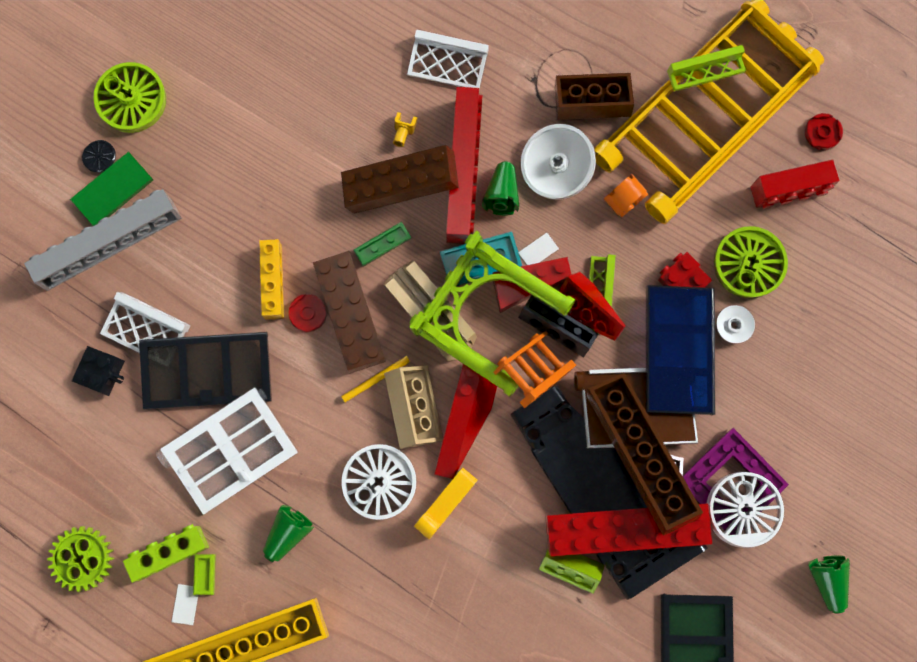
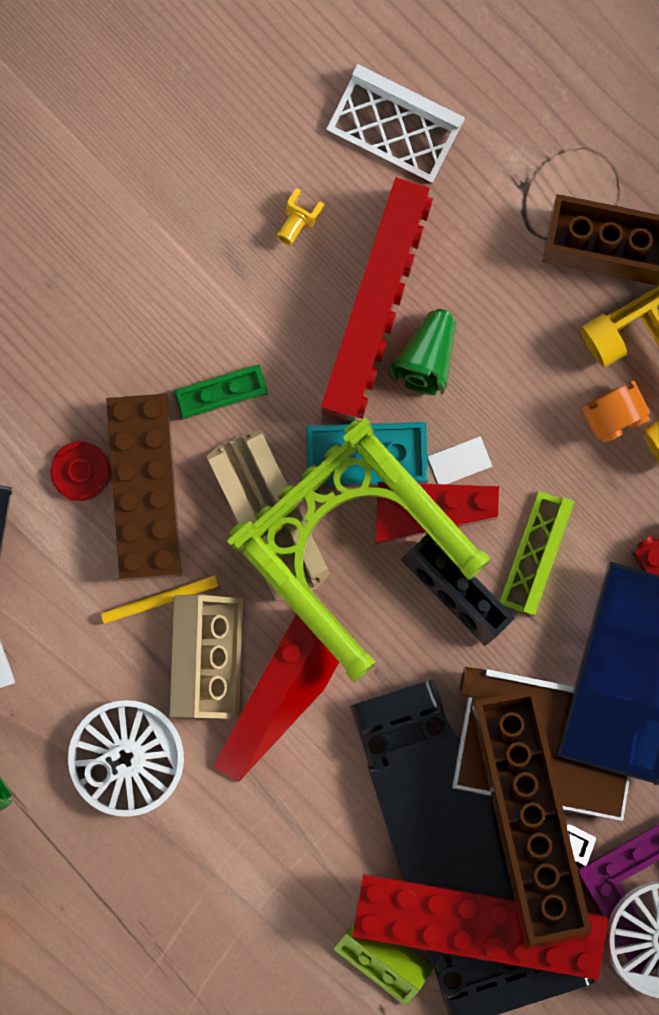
camera: 15 degrees right, 5 degrees up
(271, 279) = (37, 406): yellow brick -> none
(399, 179) = (270, 302): reddish brown brick -> none
(445, 503) = (218, 816): yellow beam -> none
(540, 384) = (405, 675): orange fence -> none
(558, 161) = (525, 331): white dish -> none
(591, 307) = (514, 572): red wedge -> none

